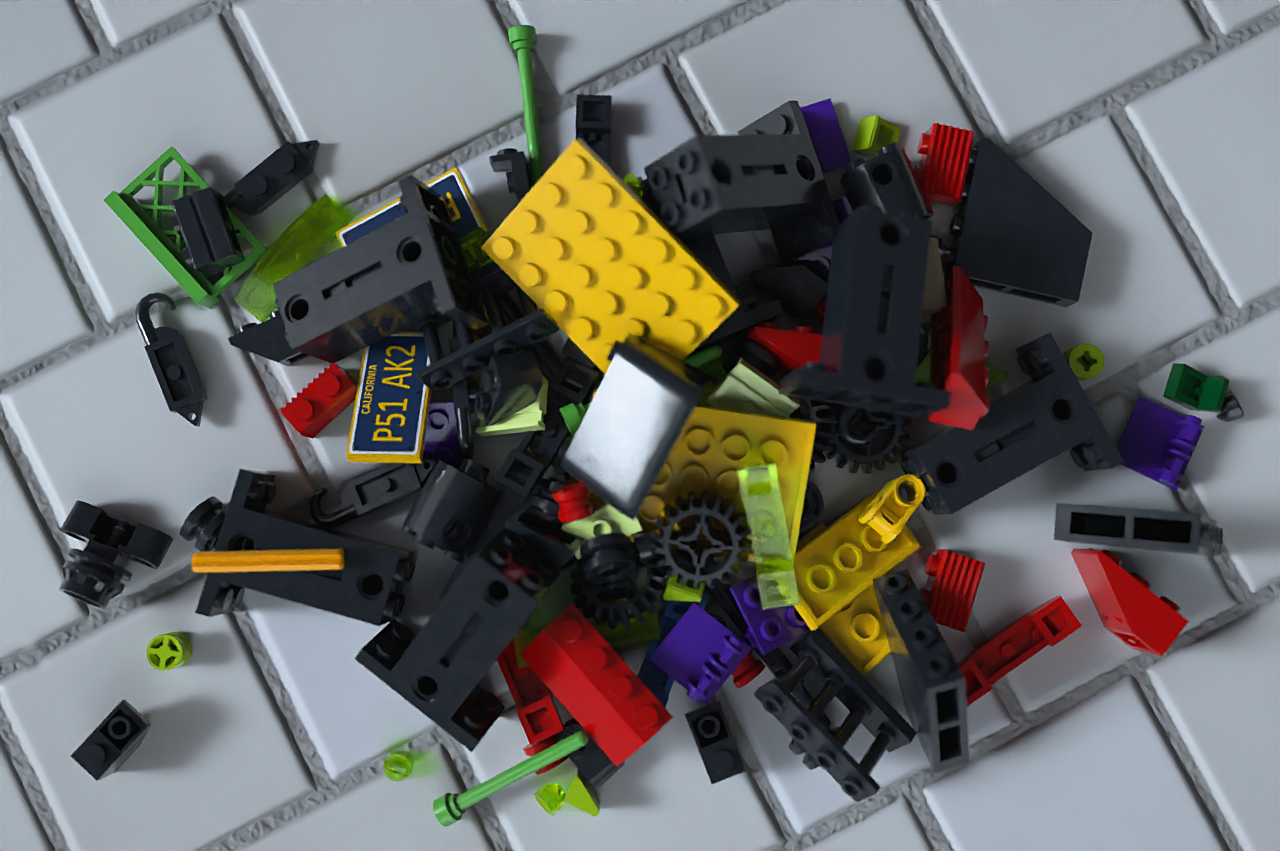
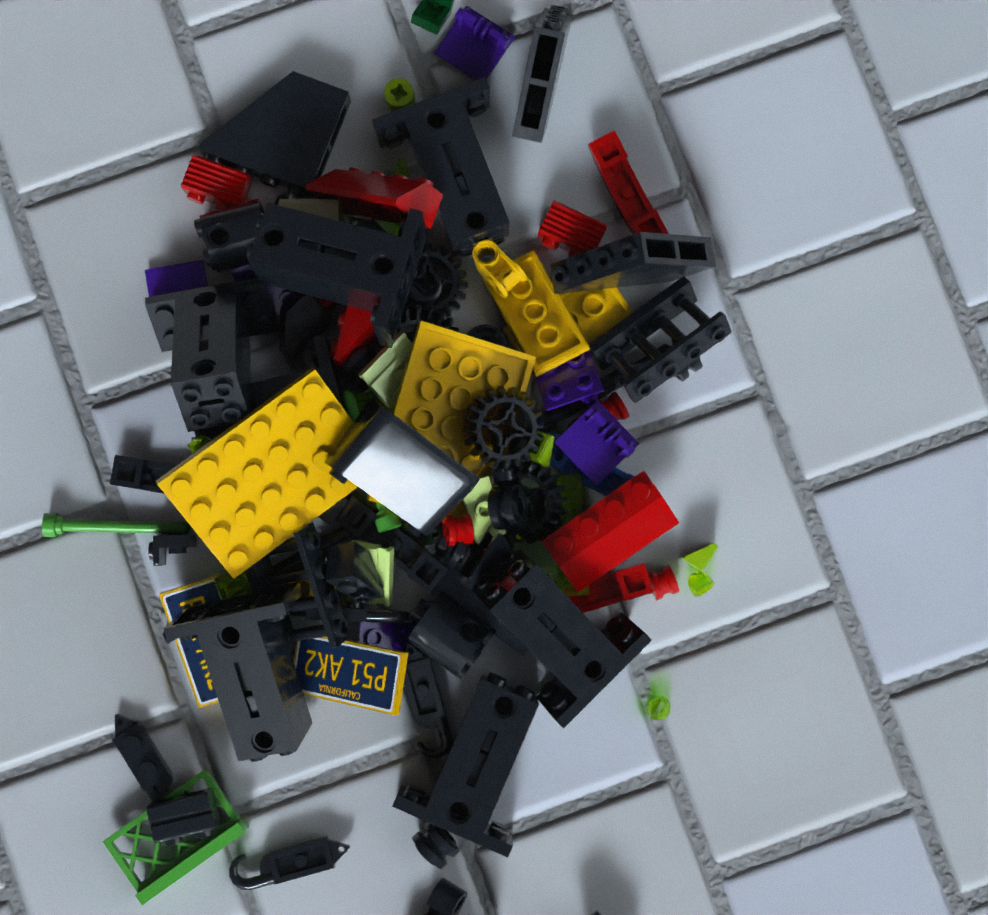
camera: 80 degrees left, 0 degrees up
(160, 652) = (537, 897): lime wheel -> none
(267, 341) = (284, 774): black slope -> none
(268, 560) = (472, 790): light orange axle -> none
(291, 253) = (213, 748): clear neon green slope -> none
(321, 401) = (343, 735): red brick -> none
(450, 806) = (697, 666): bright green piece -> none
(590, 758) = (669, 546): black piece -> none
(715, 742) = (670, 440): black slope -> none
(769, 534) = (506, 372): clear neon green slope -> none
(874, 134) = (183, 236): lime slope -> none
(1127, 604) = (602, 92): red slope -> none

